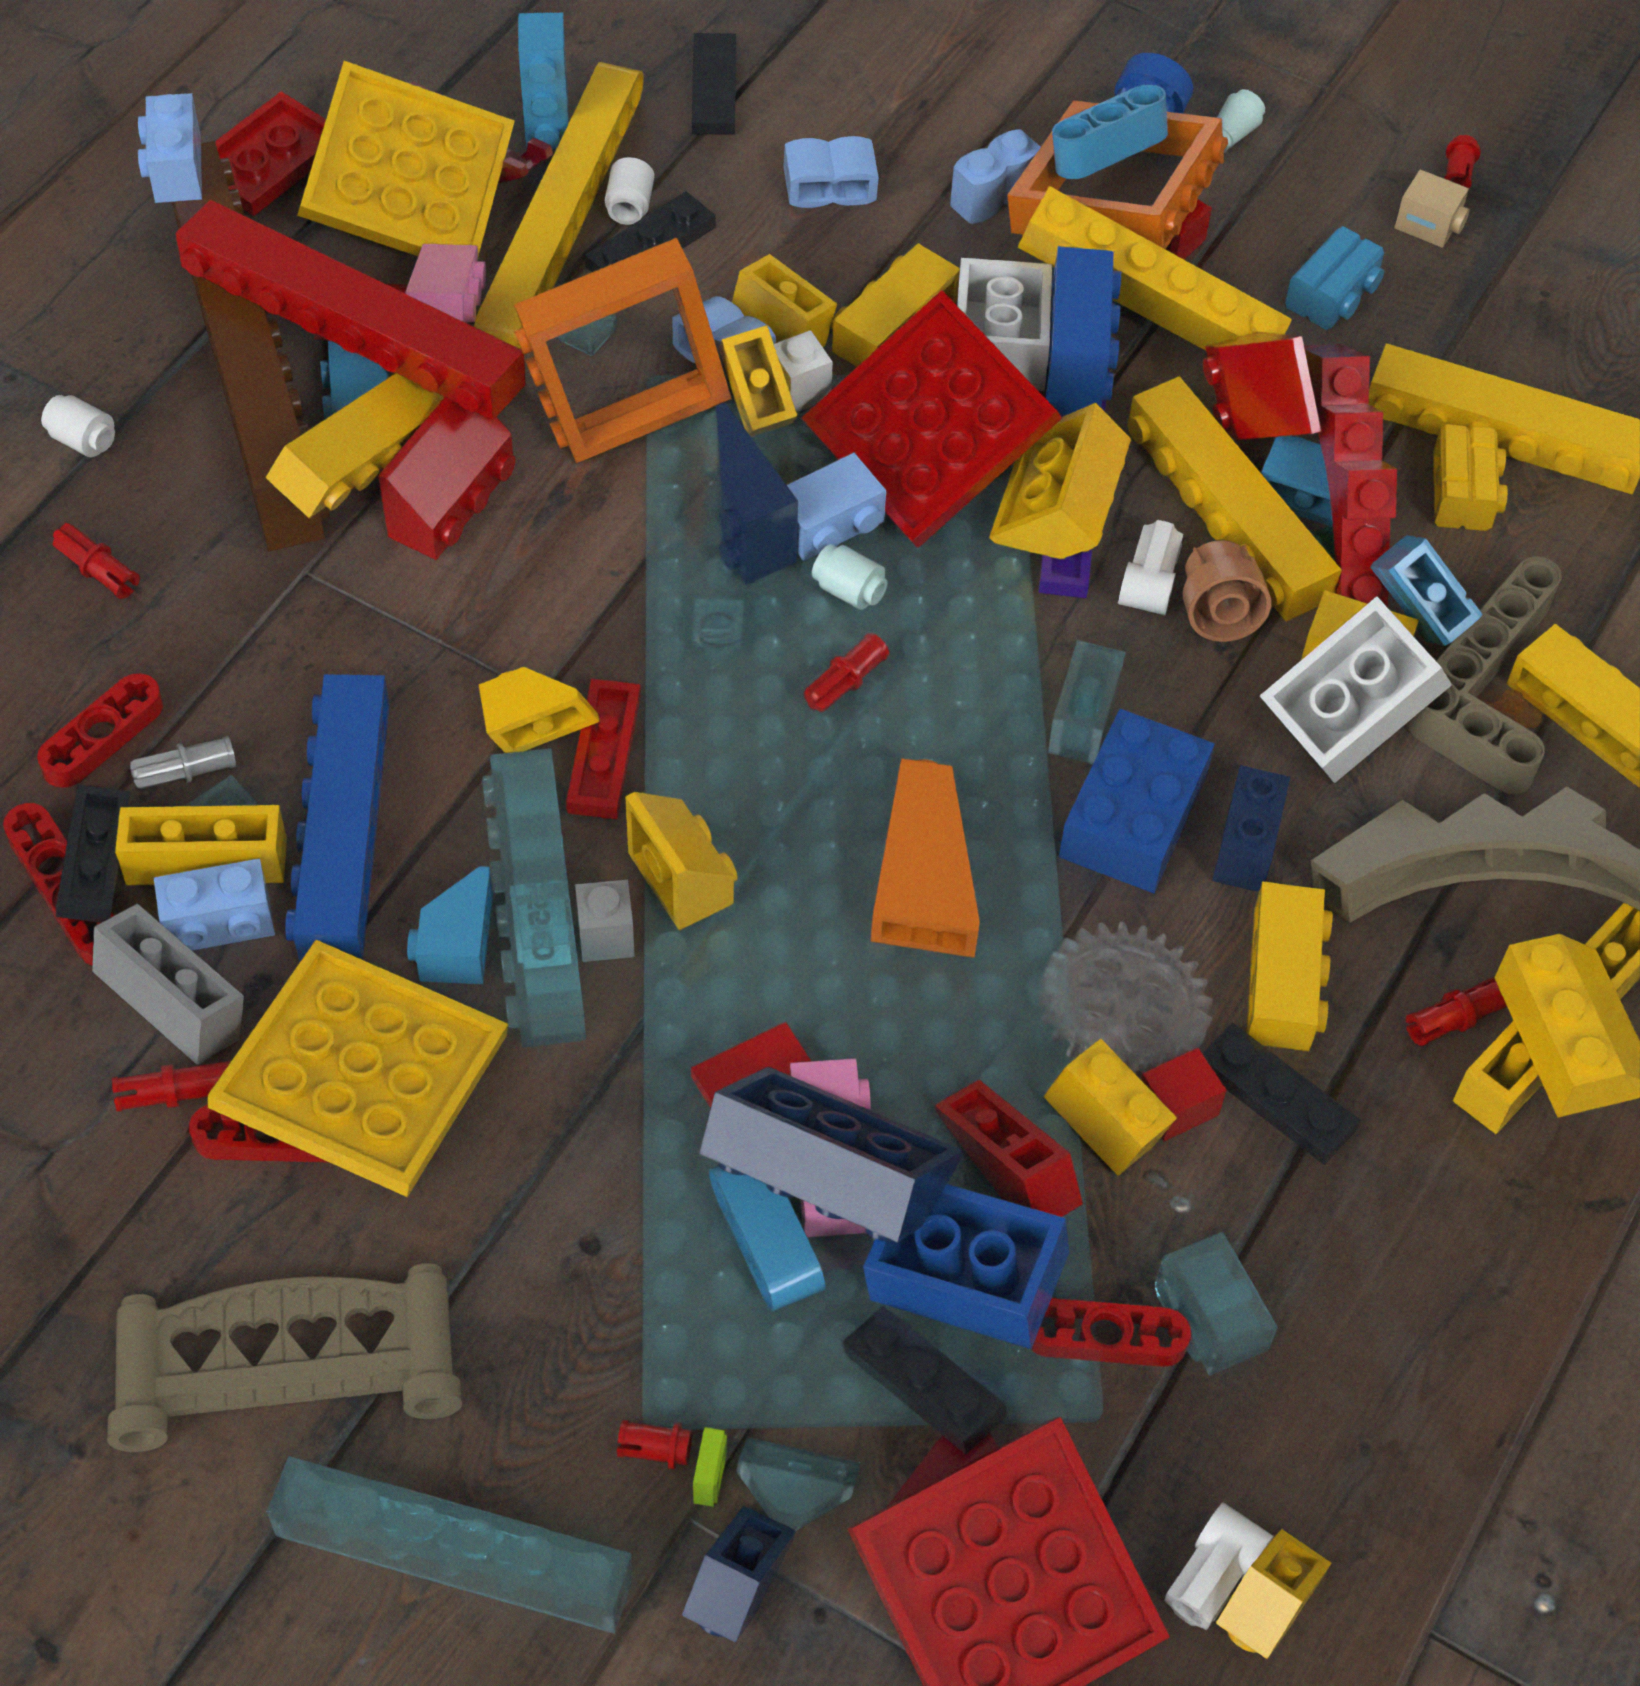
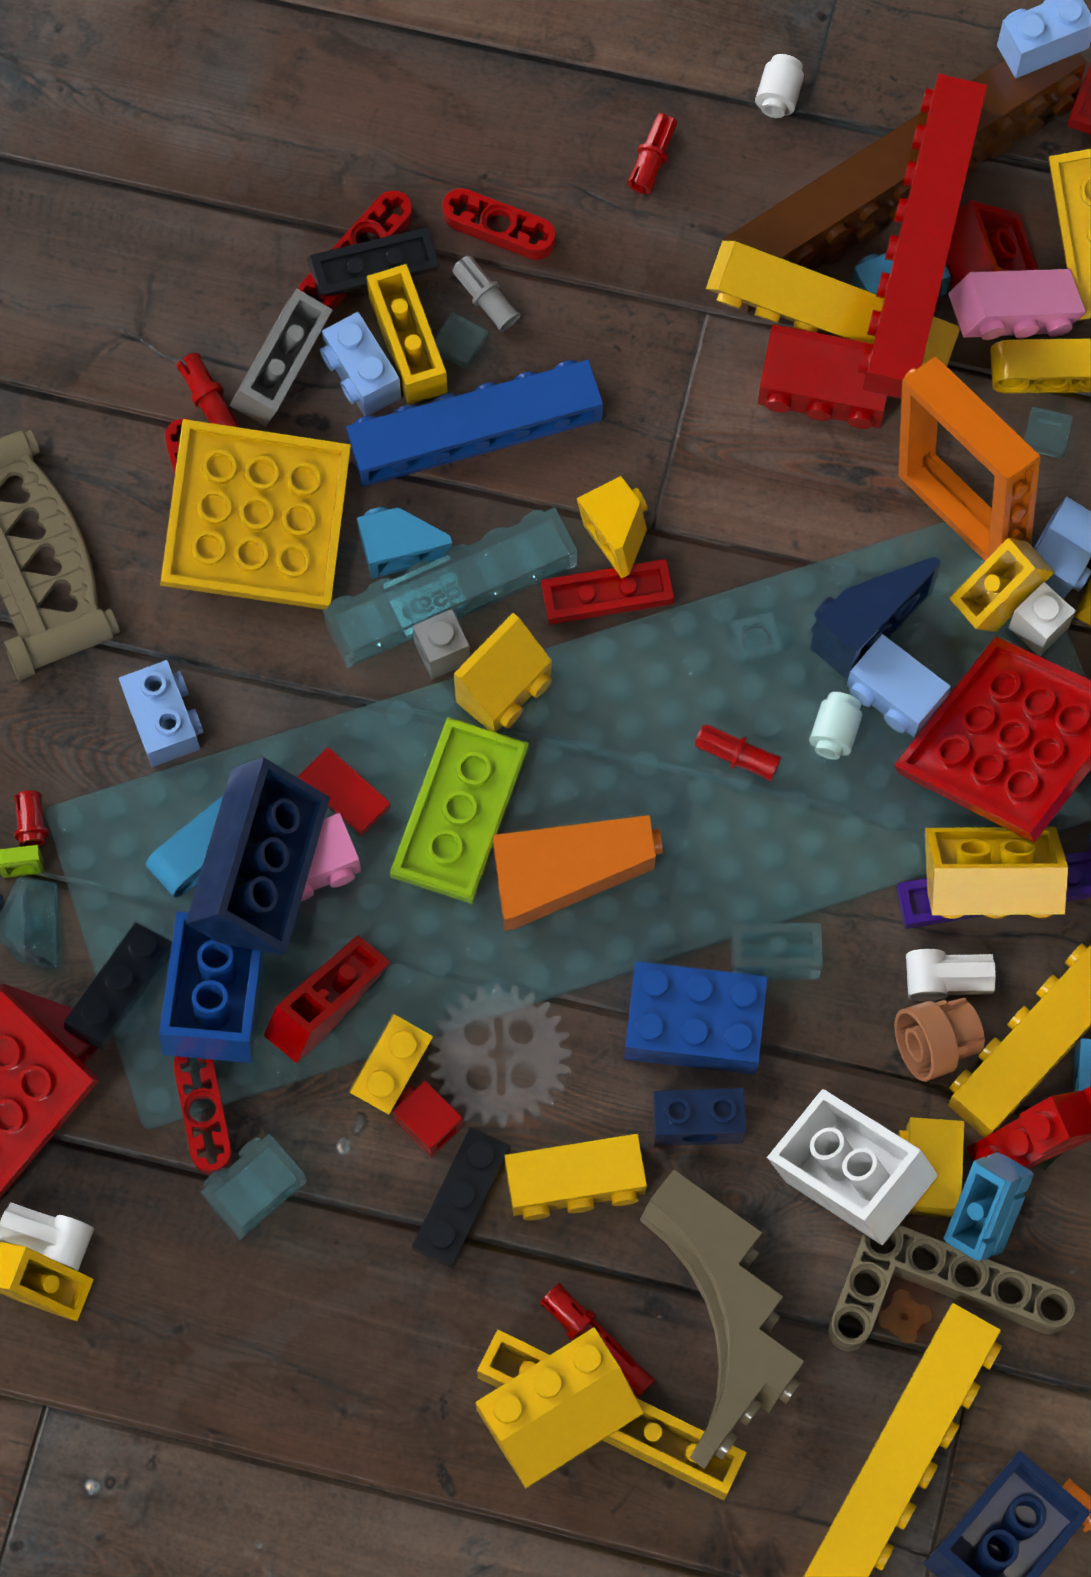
camera: 75 degrees right, 15 degrees up
(571, 1248) = (160, 713): none -> light blue brick
(816, 960) = (459, 810): none -> lime tile

